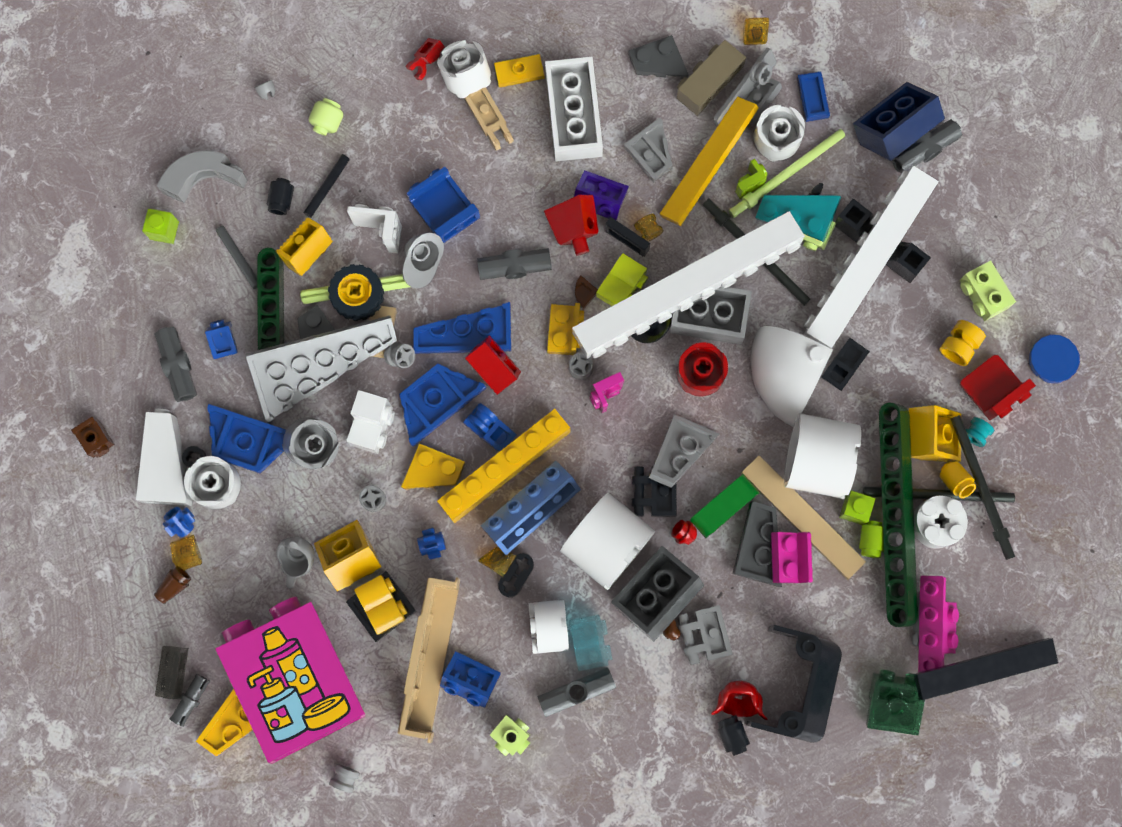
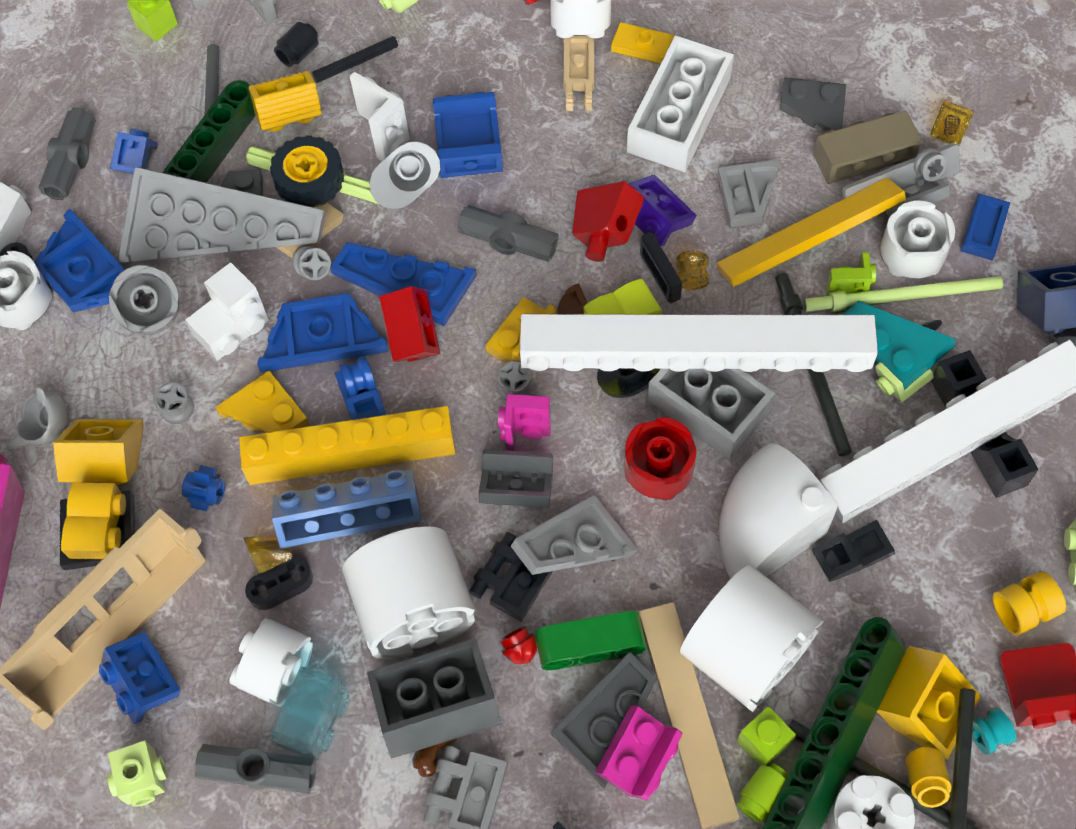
camera: 30 degrees right, 15 degrees down
(621, 430) = (516, 478): none -> dark grey bracket

